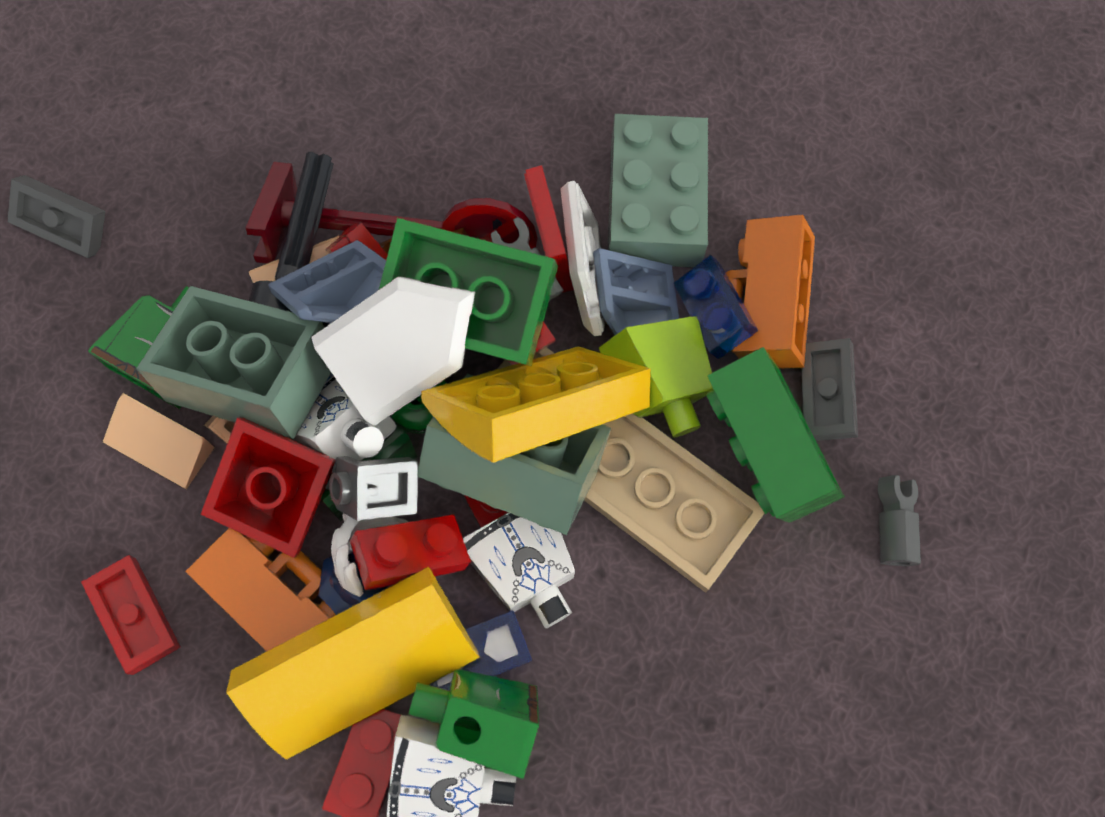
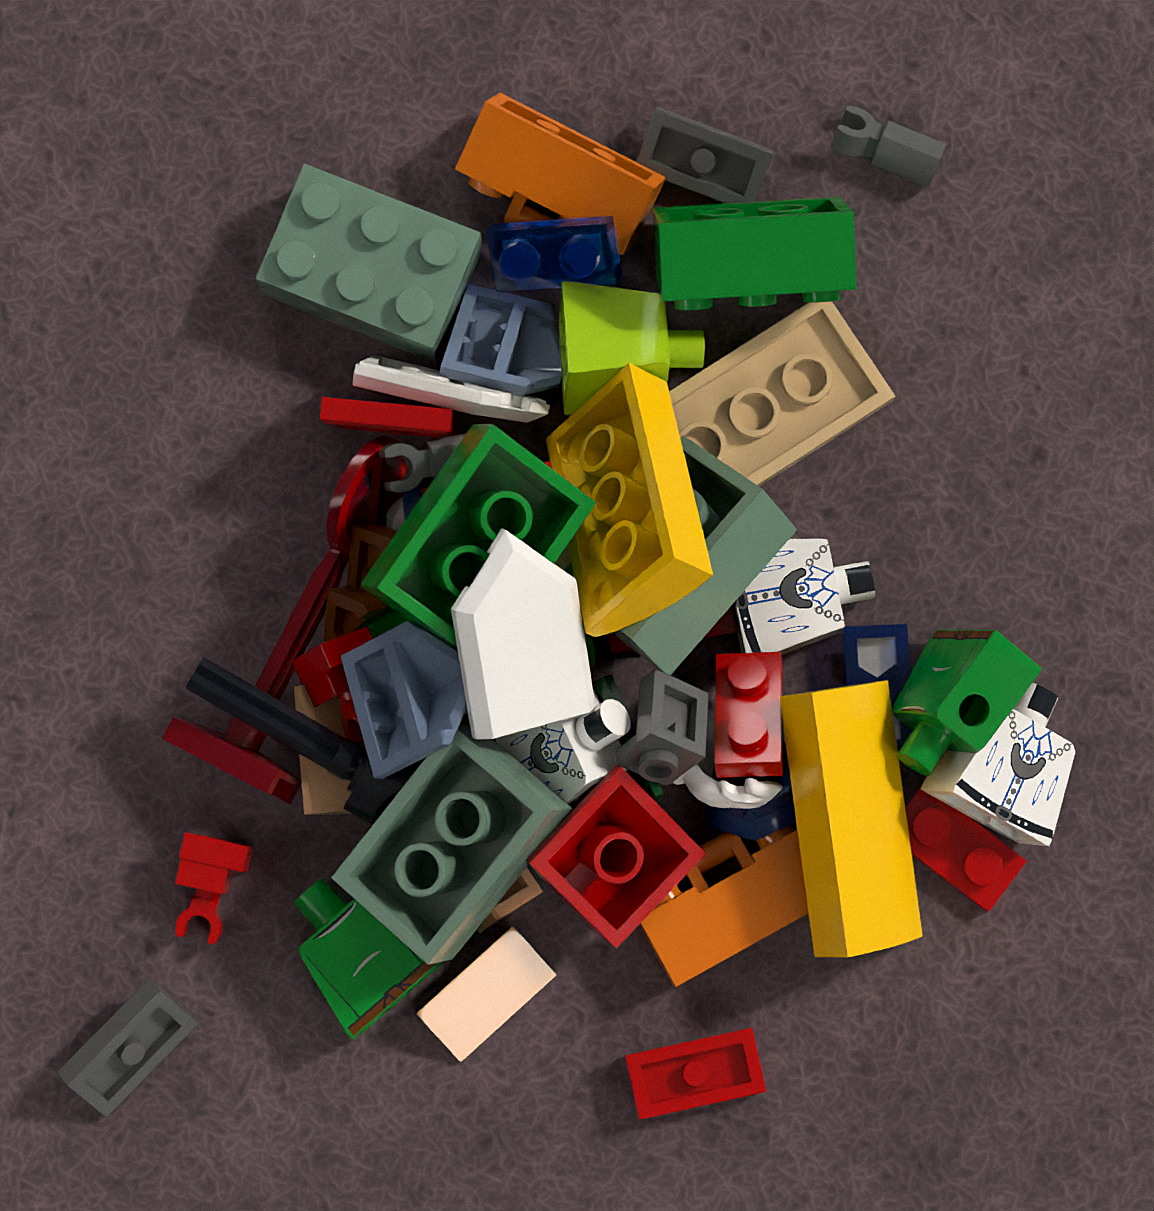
camera: 70 degrees left, 10 degrees up
(197, 226) = (208, 867): none -> red piece

